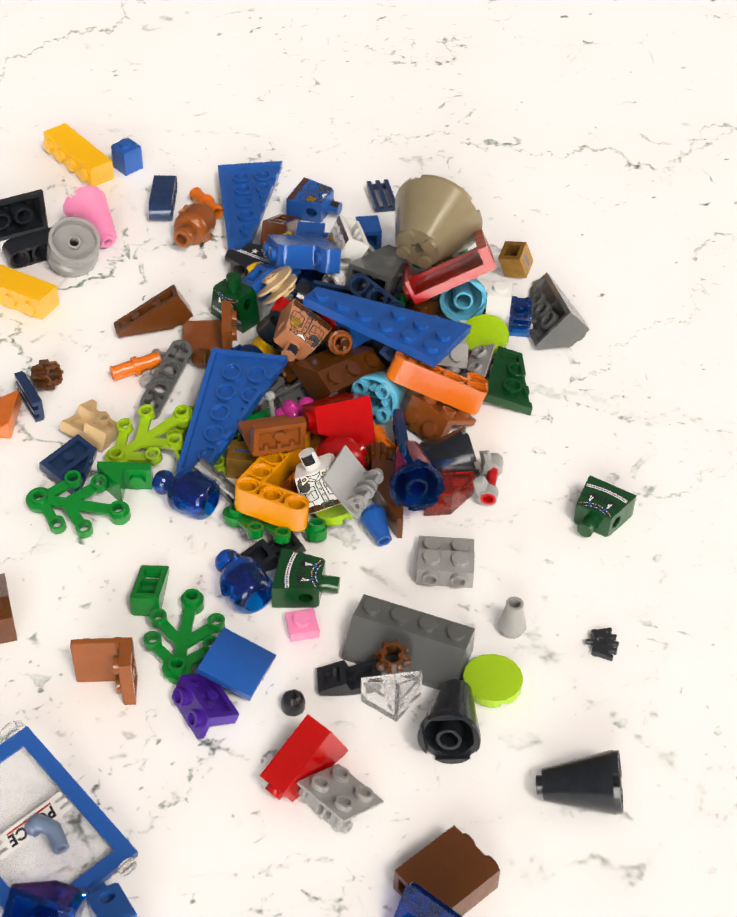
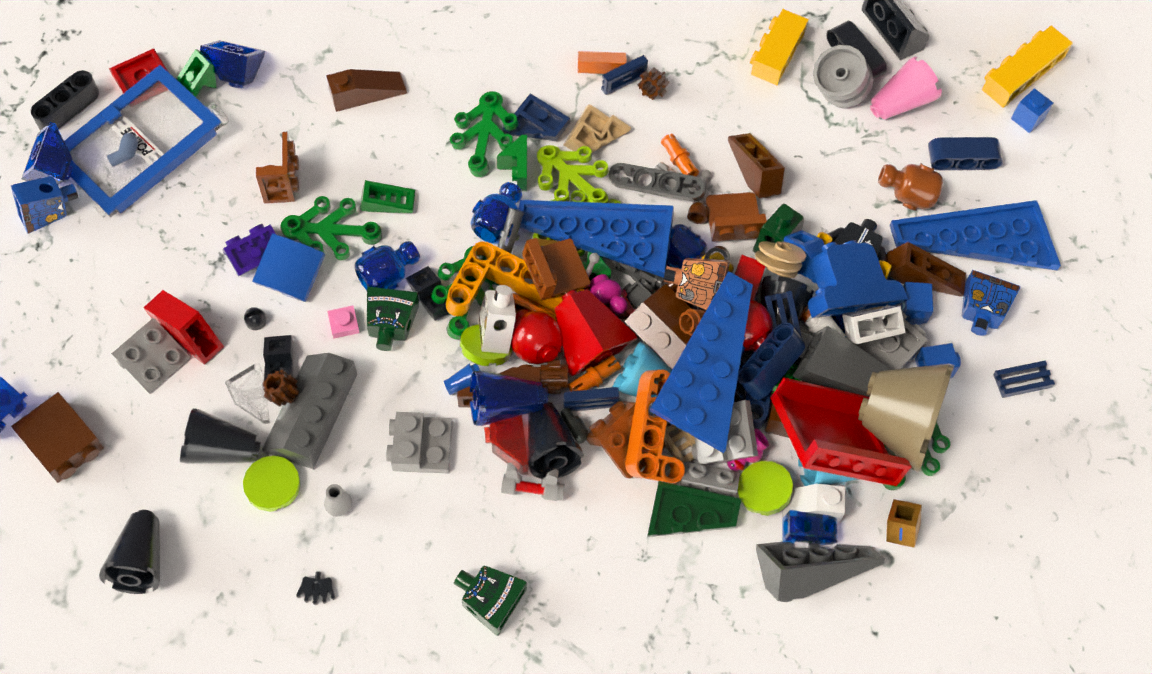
camera: 85 degrees right, 20 degrees up
(199, 196) = (966, 195): orange pin -> none
(351, 482) = (481, 337): light grey hinge -> none

